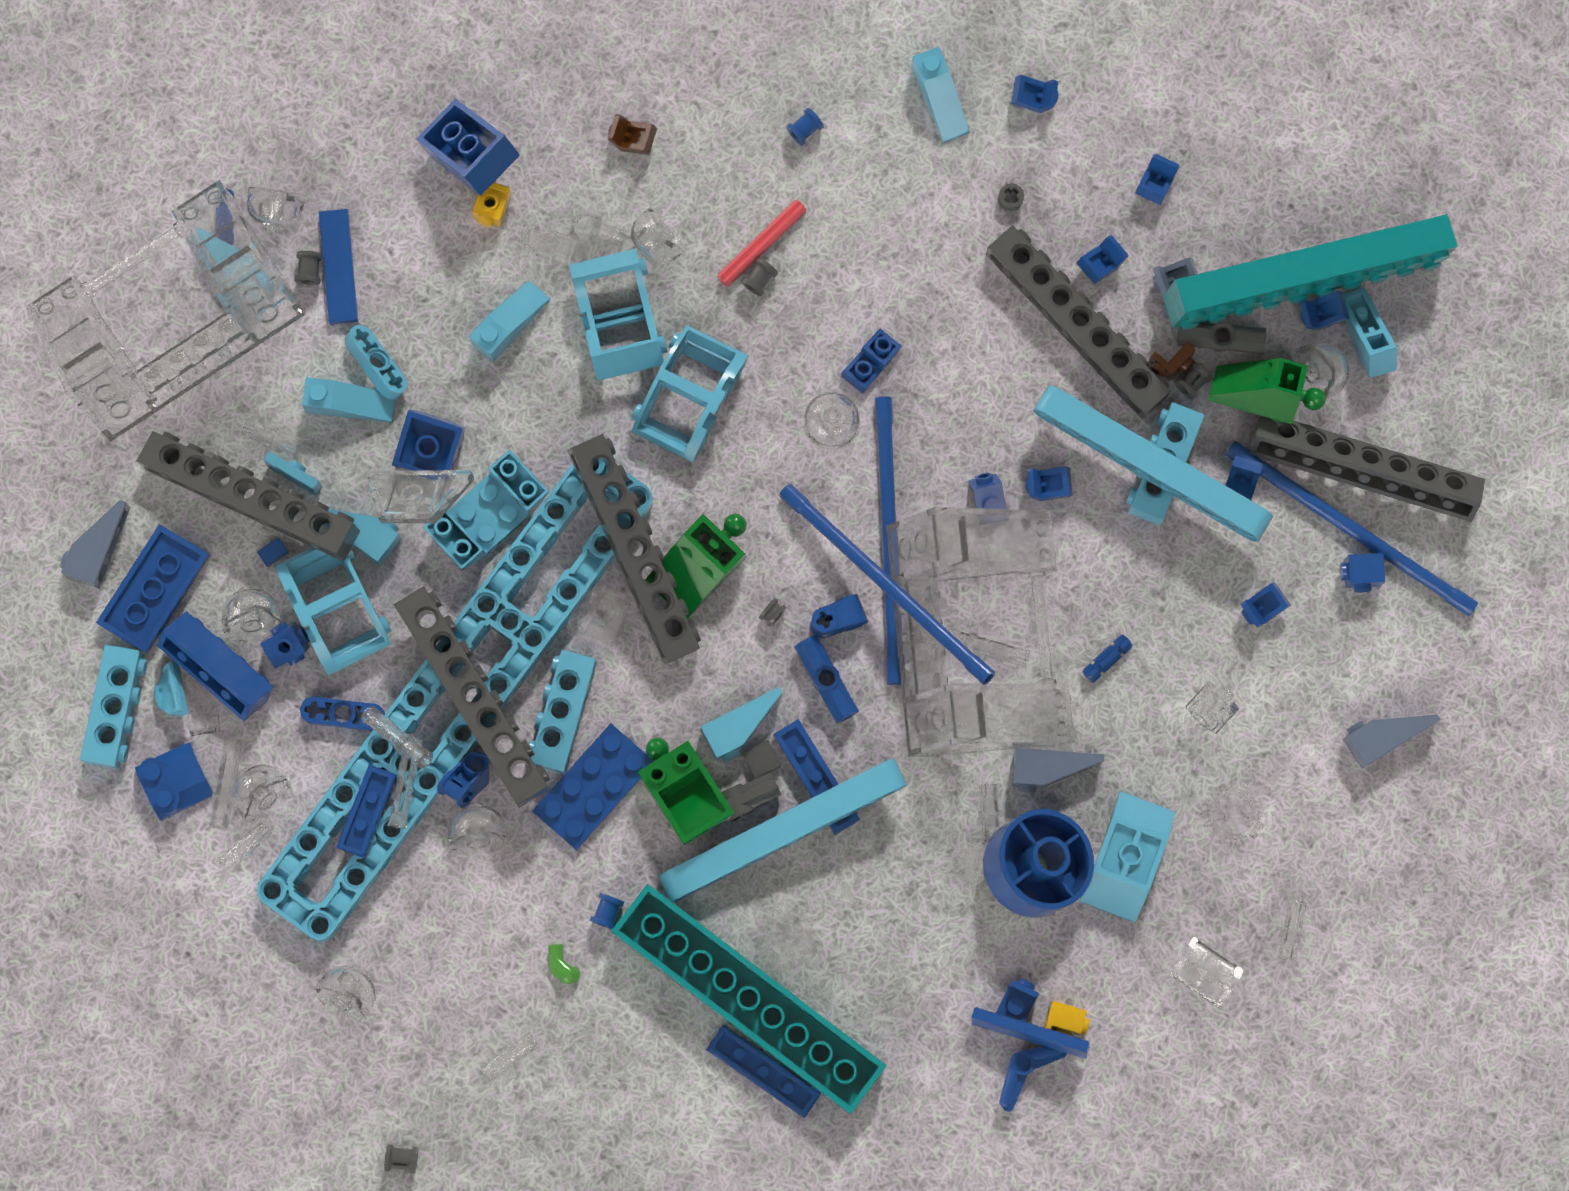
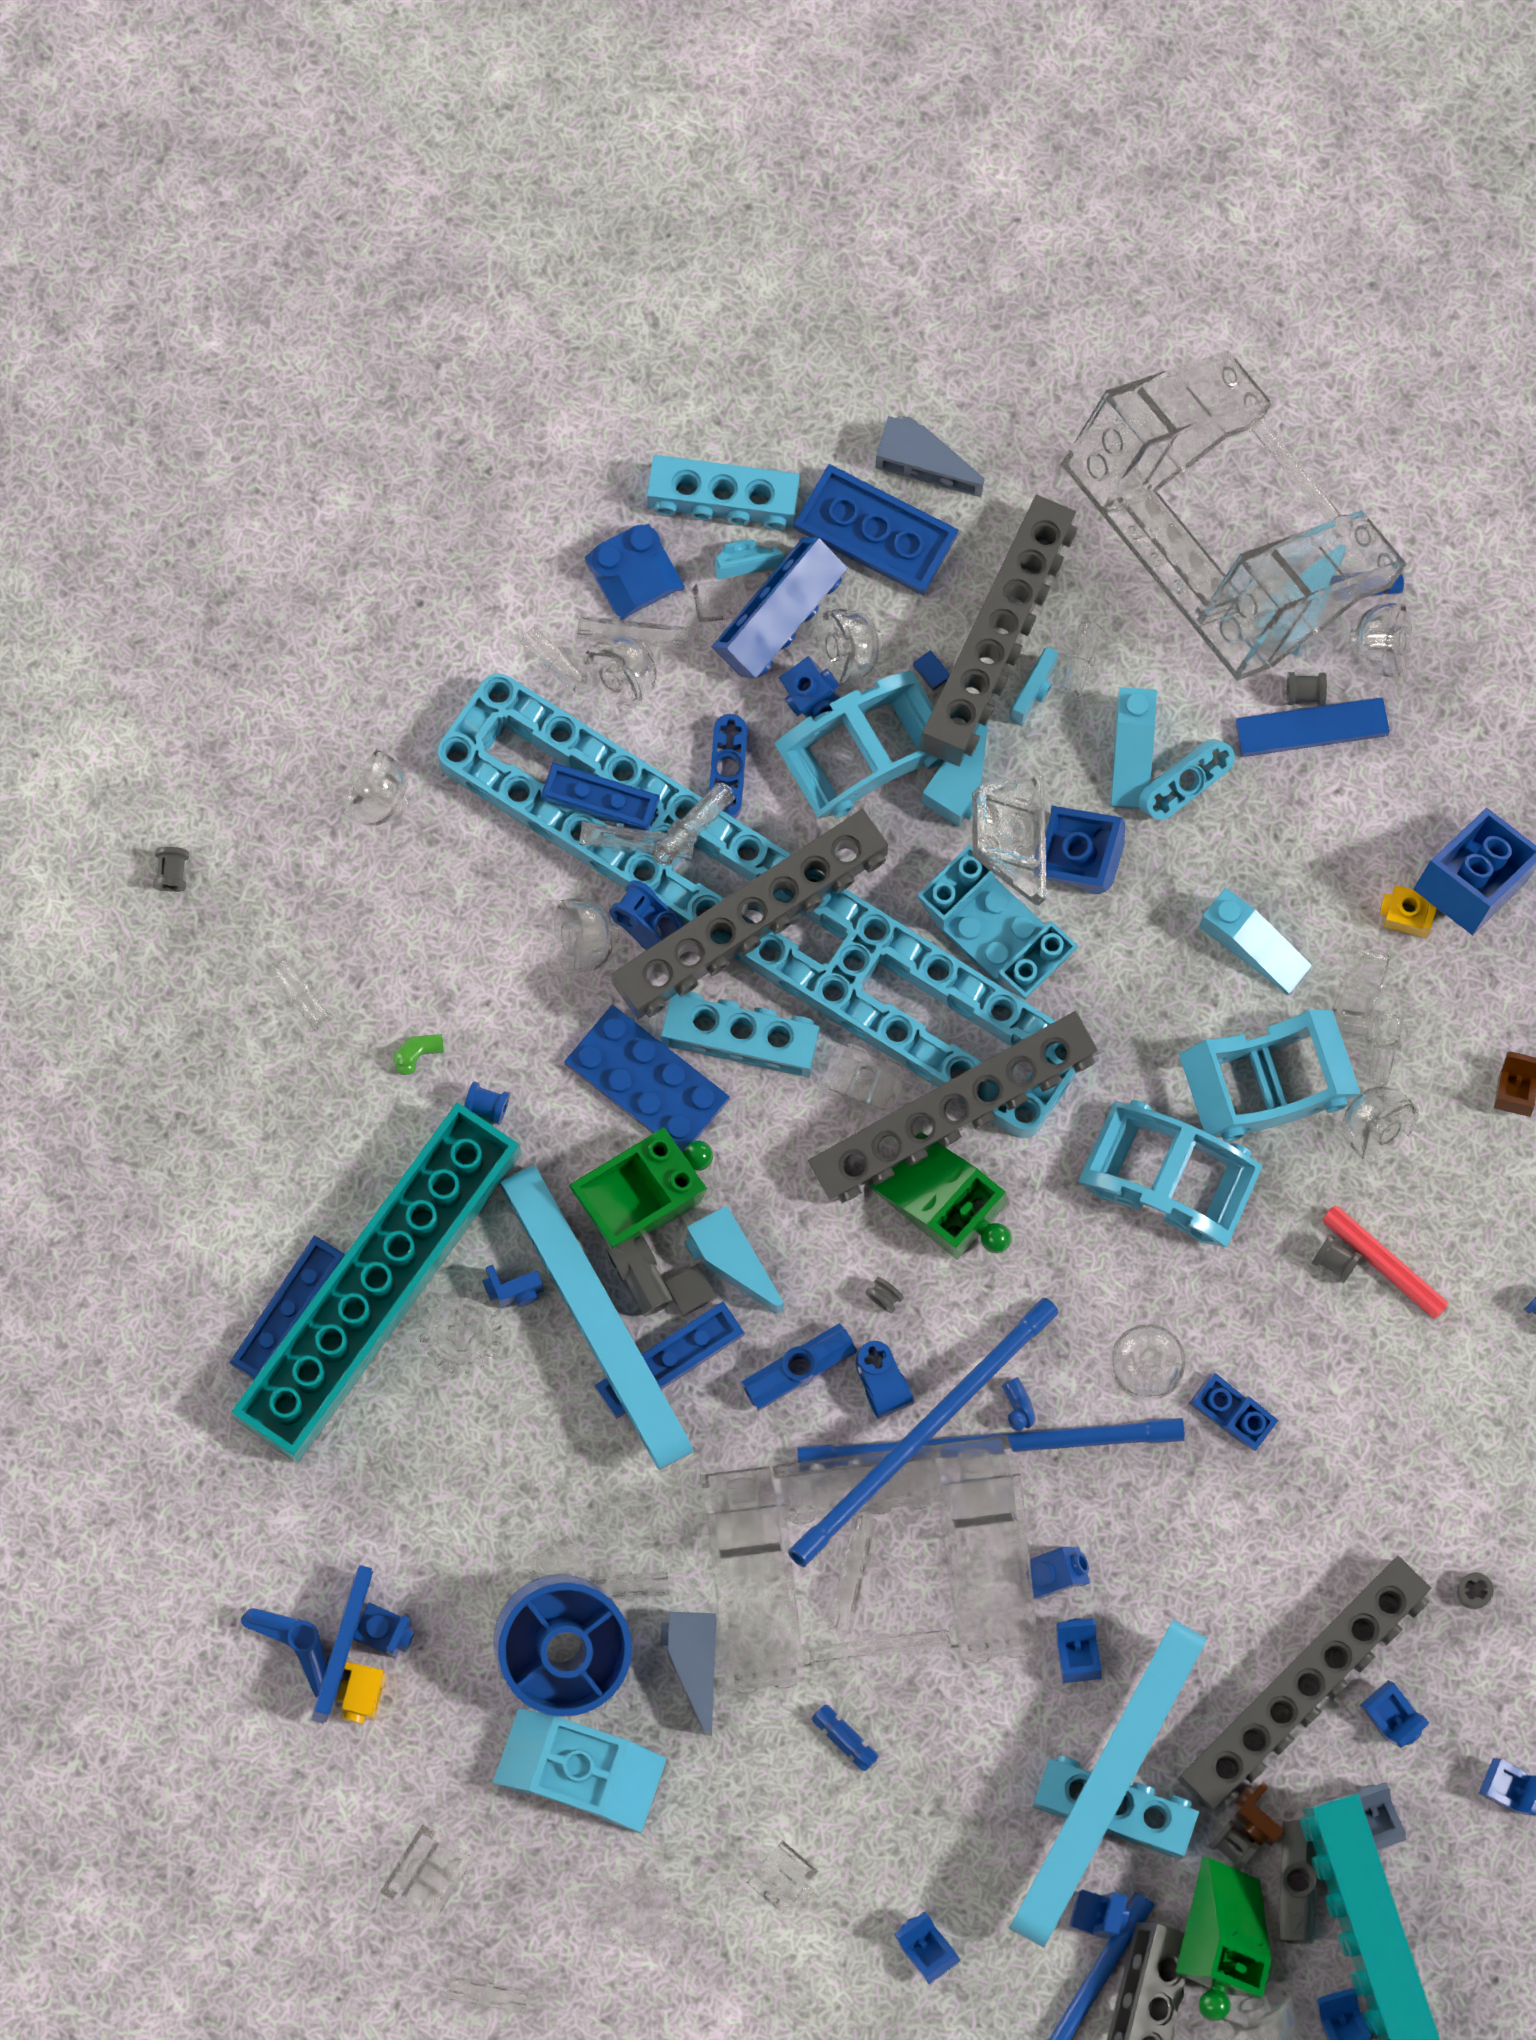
camera: 90 degrees right, 5 degrees down
(758, 888) = (521, 1290): none -> blue bracket
(857, 516) = (1023, 1413): none -> blue arm

